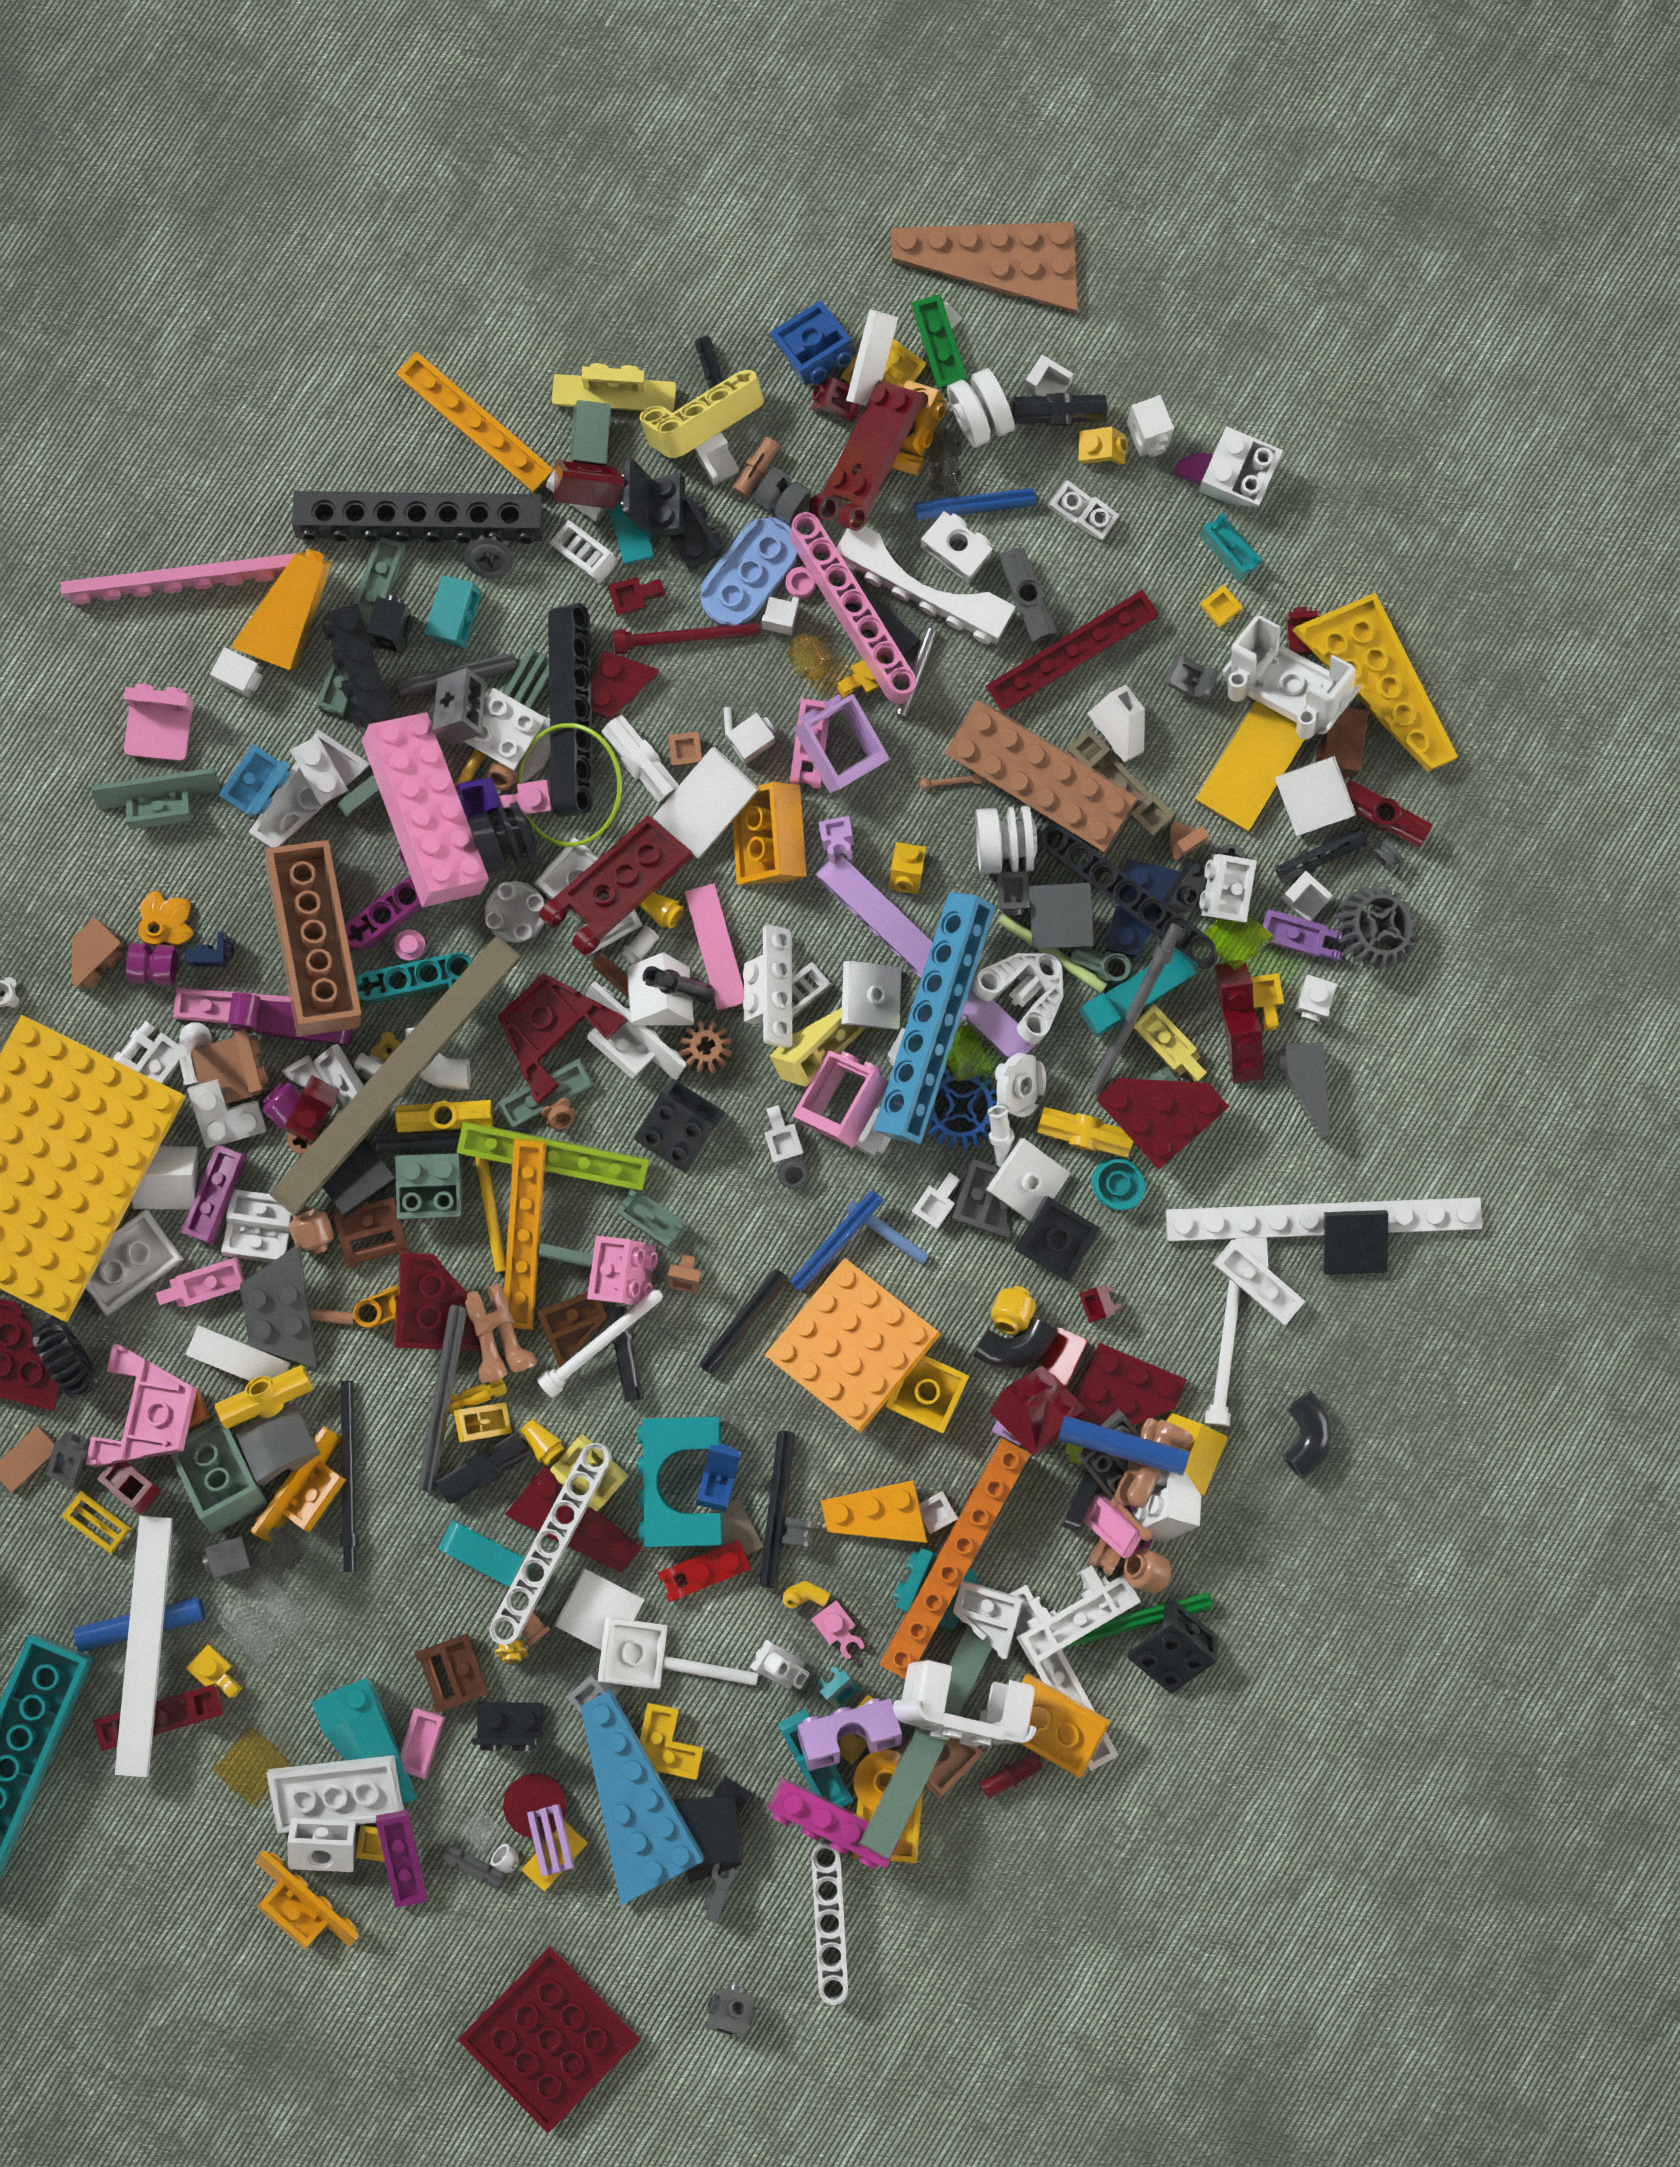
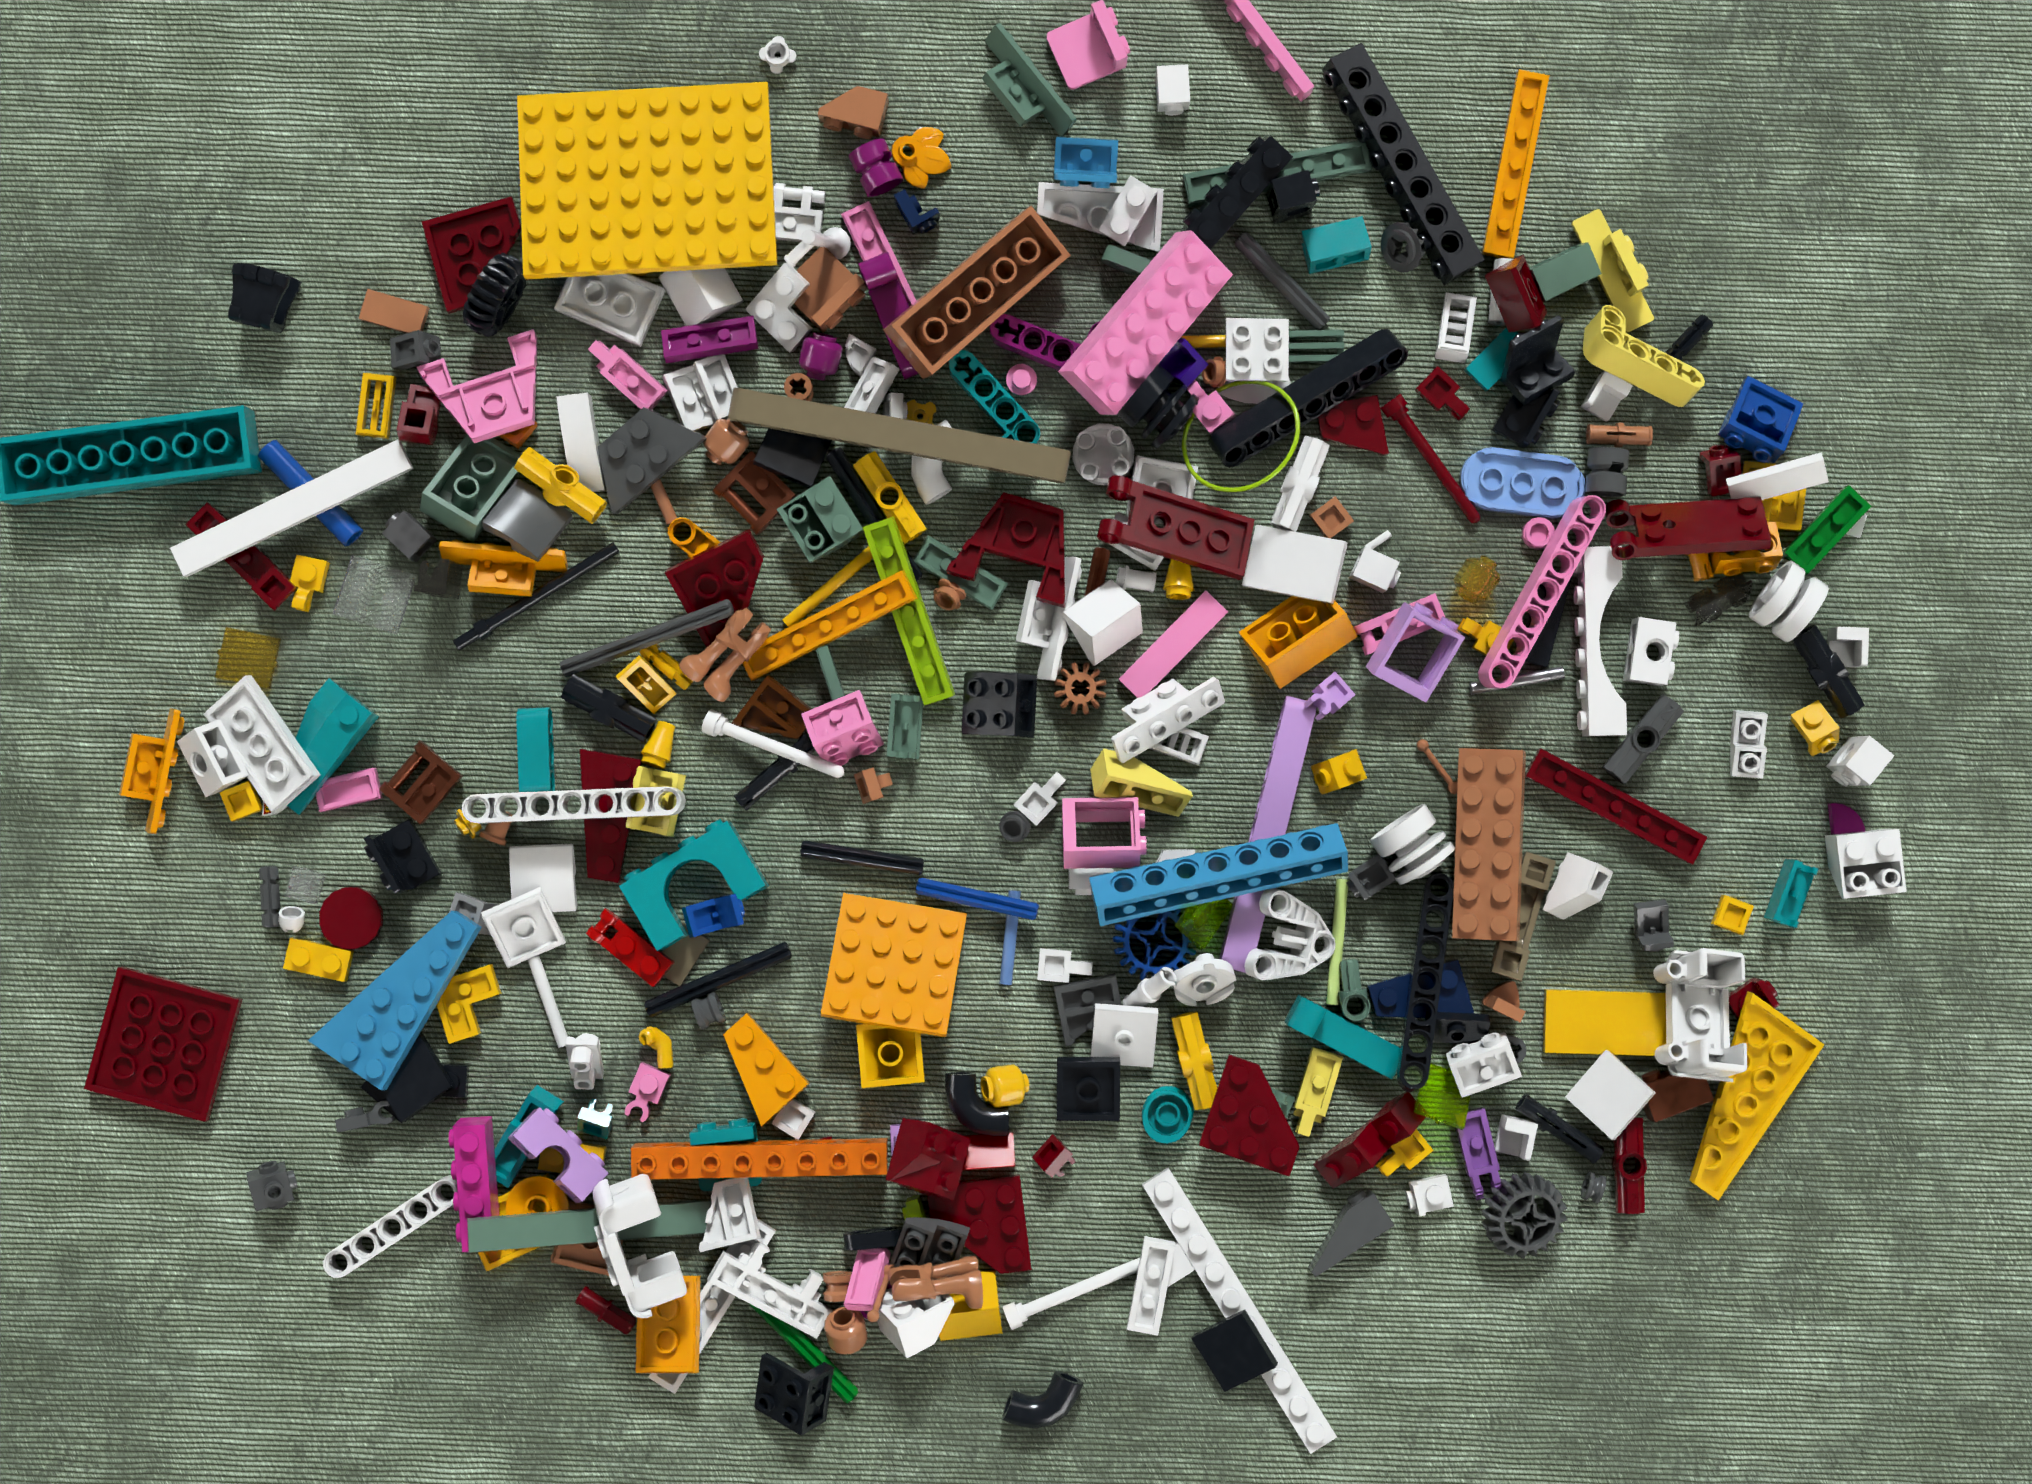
camera: 60 degrees right, 5 degrees up
(286, 614) = (1250, 100): light orange slope -> none
(311, 1109) = (828, 379): dark red slope -> none
(401, 1858) = (239, 832): magenta plate -> none
(459, 706) = (1254, 299): flat silver brick -> none
(539, 1847) = (320, 939): lavender tile -> none
(672, 983) = (1117, 626): black pin -> none
(780, 615) = (1499, 532): white panel -> none
(871, 995) = (1207, 805): white plate -> none
(975, 503) = (1698, 645): blue axle -> none
(1005, 258) = (1937, 545): nougat wing -> none
(1061, 915) = (1373, 932): dark grey slope -> none
(1123, 1445) = (937, 1254): blue piece -> none
(1162, 955) = (1388, 1043): flat silver bar -> none

